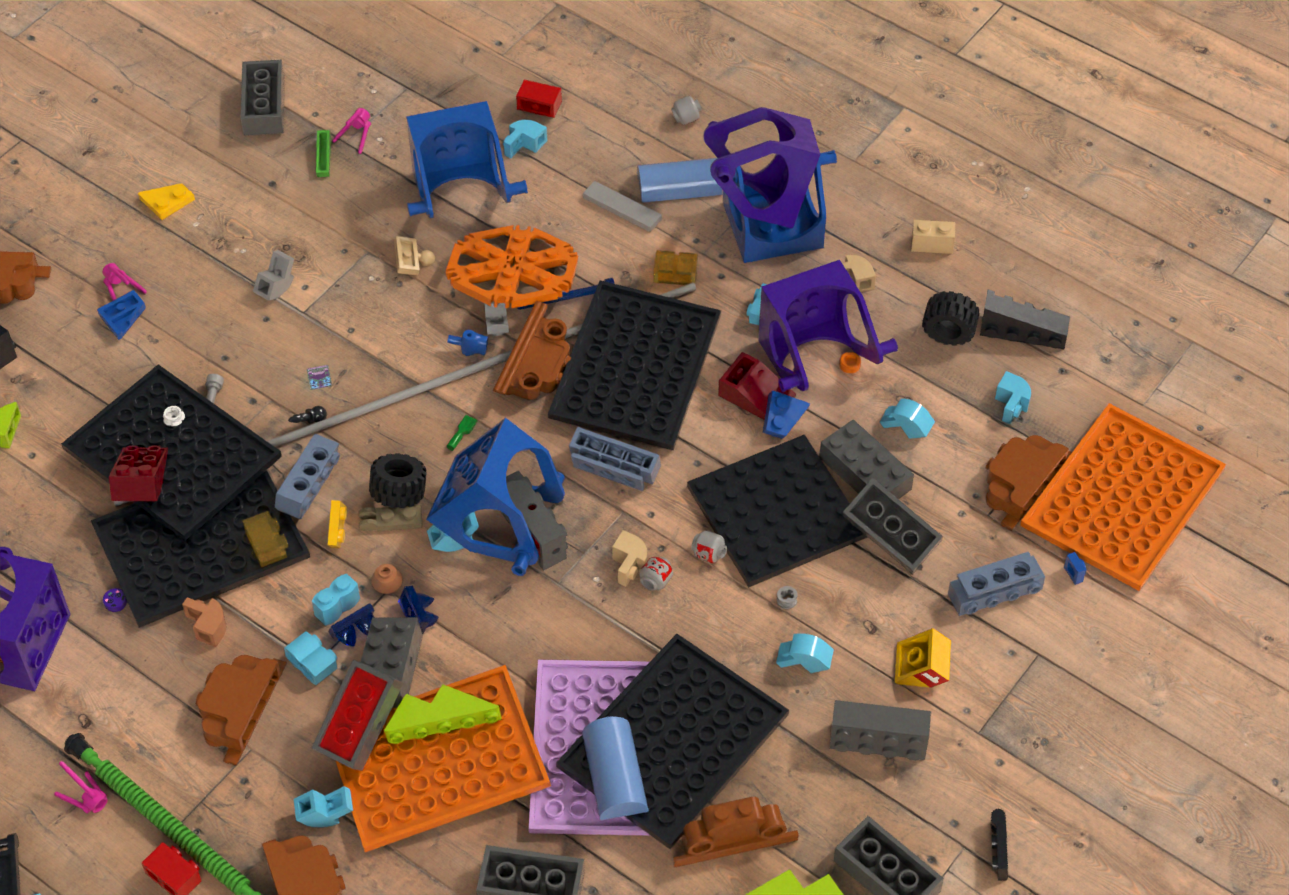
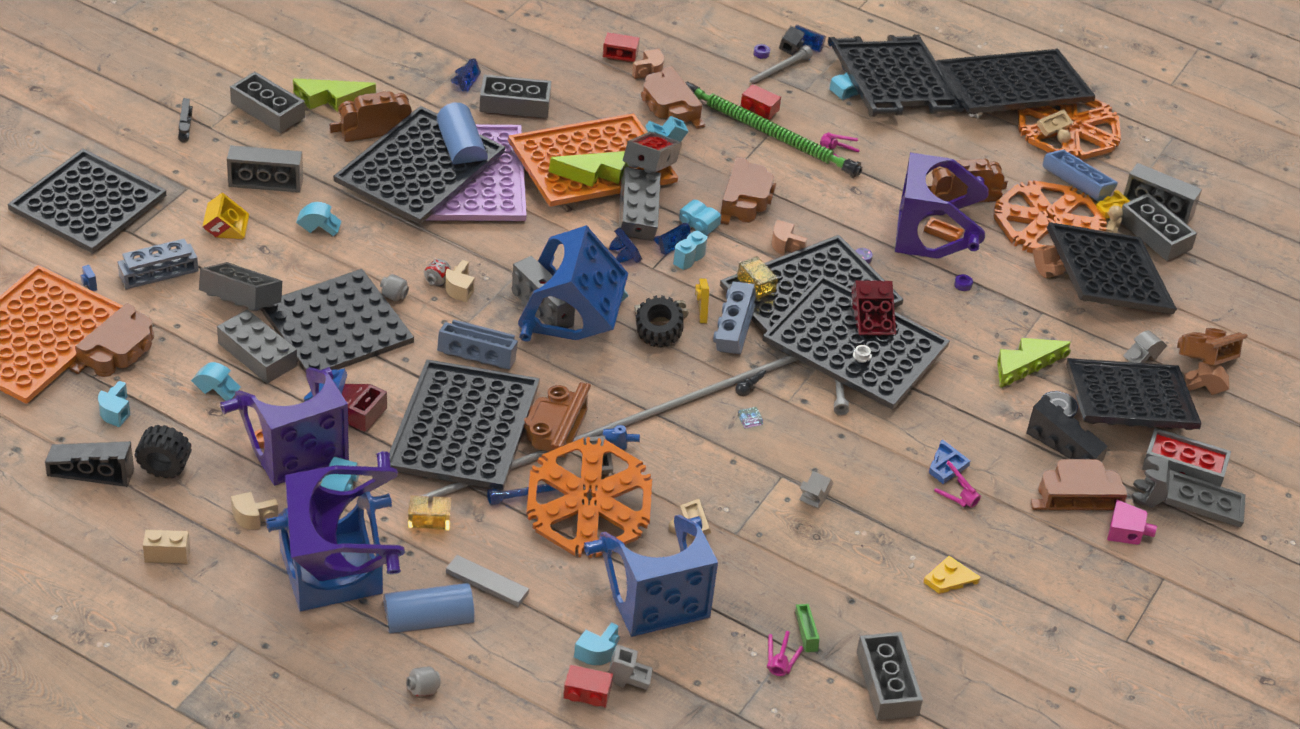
camera: 170 degrees right, 10 degrees down
(386, 579) = (654, 269): nougat cone -> none
(464, 427) = (612, 380): green piece -> none
(504, 107) = (627, 670): none -> light grey brick
(789, 602) = (327, 262): light grey bush -> none
(1103, 700) = (87, 200): none -> black plate

